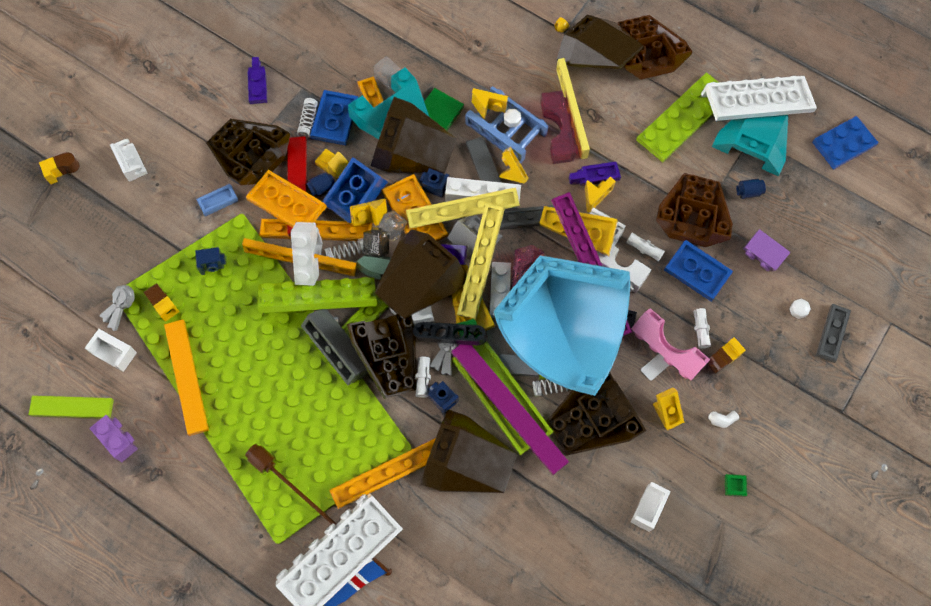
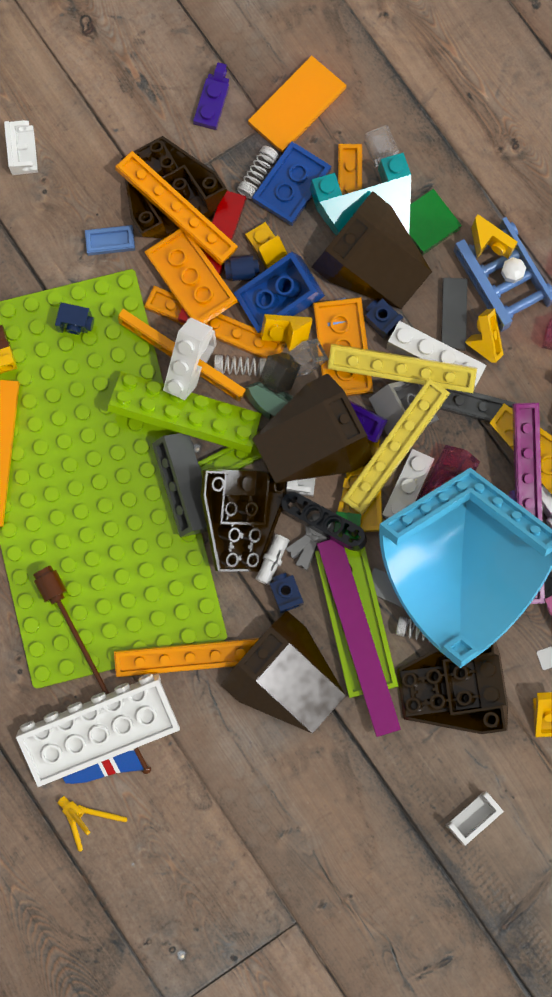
camera: 25 degrees right, 10 degrees up
(258, 158) = (176, 207): none -> light orange tile
(318, 67) = (297, 104): none -> light orange tile

